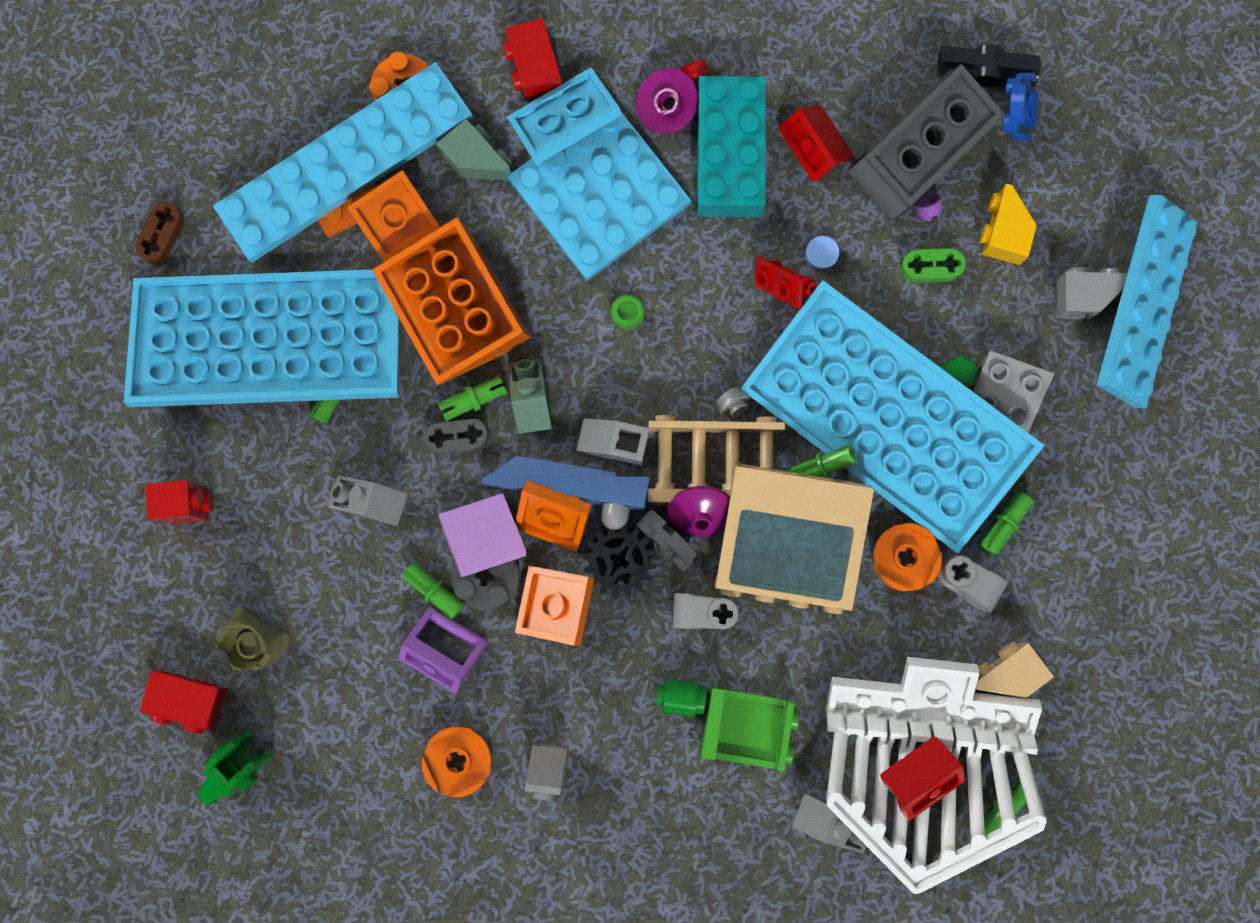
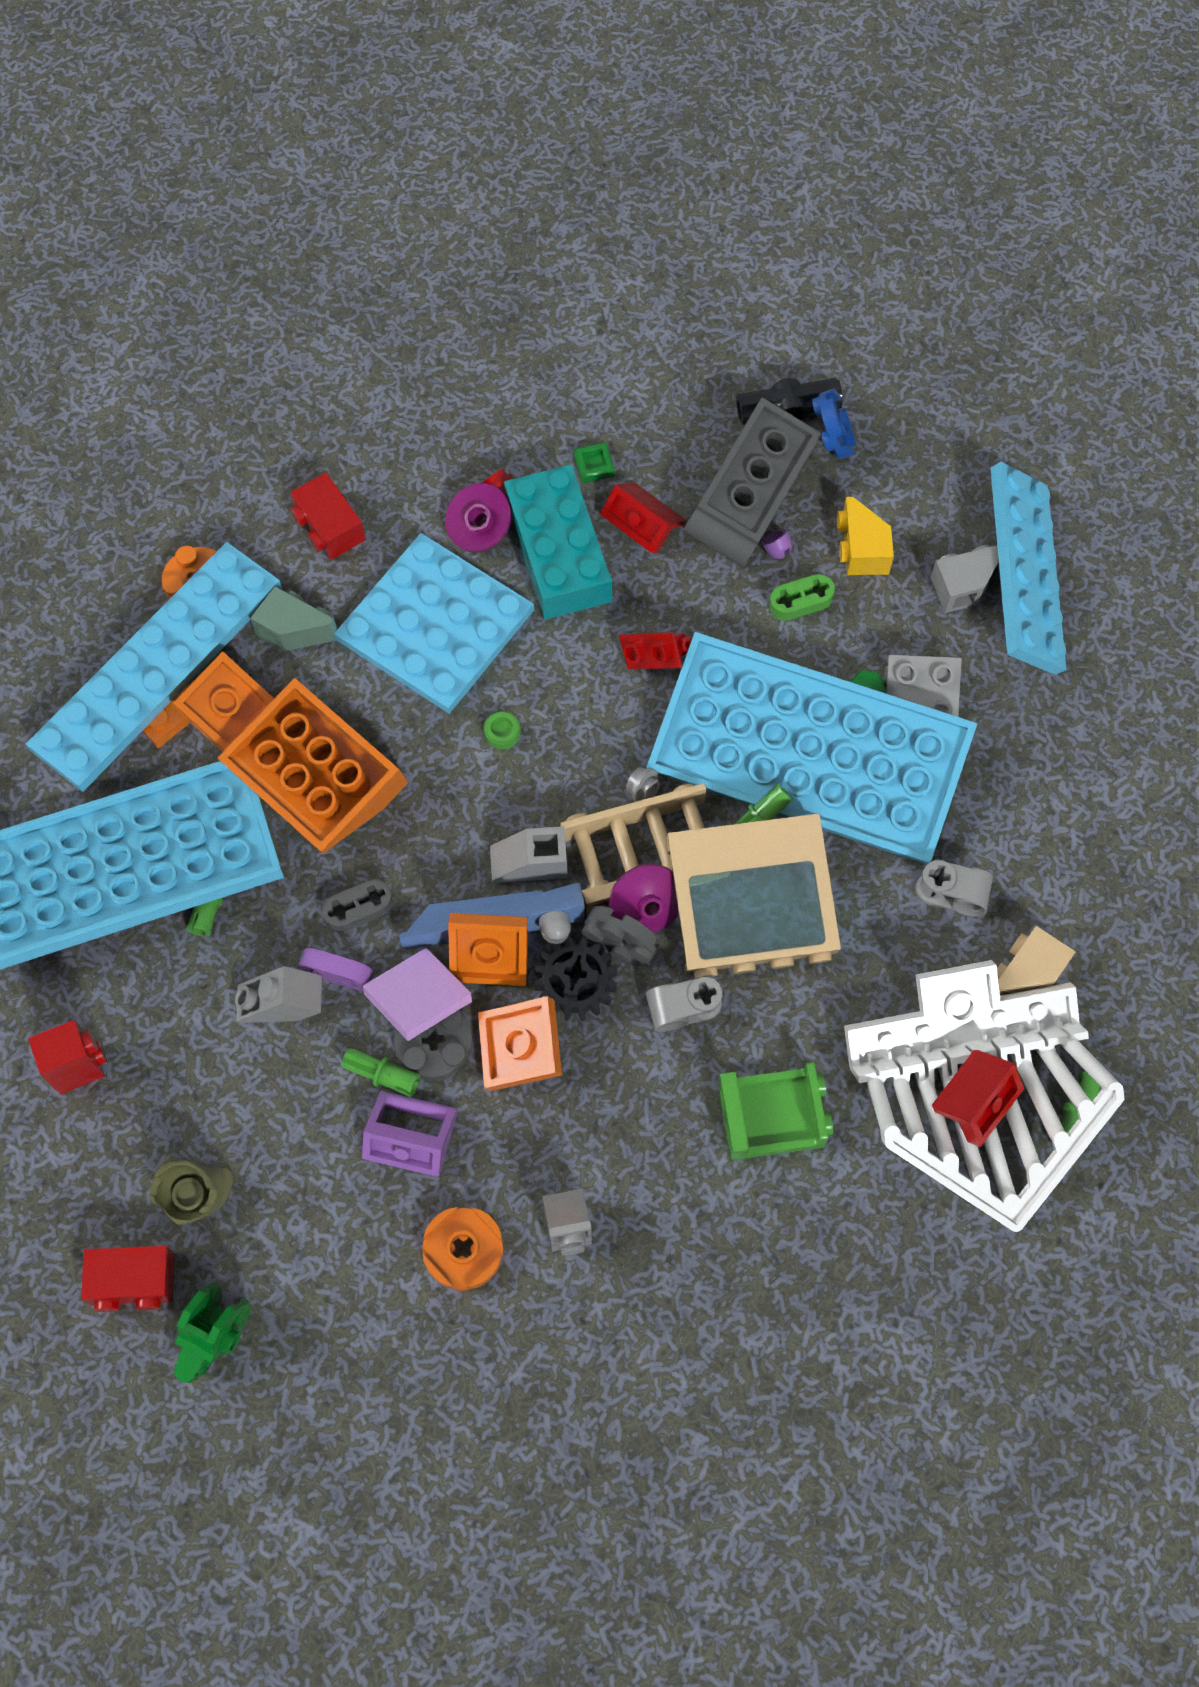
camera: 20 degrees left, 15 degrees down
(421, 489) = (335, 968): none -> medium lavender beam
(472, 398) = (363, 860): bright green pin -> none
(529, 396) = (425, 839): sand green slope -> none
(564, 116) = (376, 558): medium azure plate -> none
(681, 697) = (690, 1100): green brick -> none
(789, 74) = (594, 462): none -> green tile
(821, 823) = (896, 1182): light grey slope -> none
(822, 253) = (685, 617): light blue tile -> none
(924, 550) = (874, 905): orange plate -> none
(1006, 522) = (969, 819): bright green axle -> none

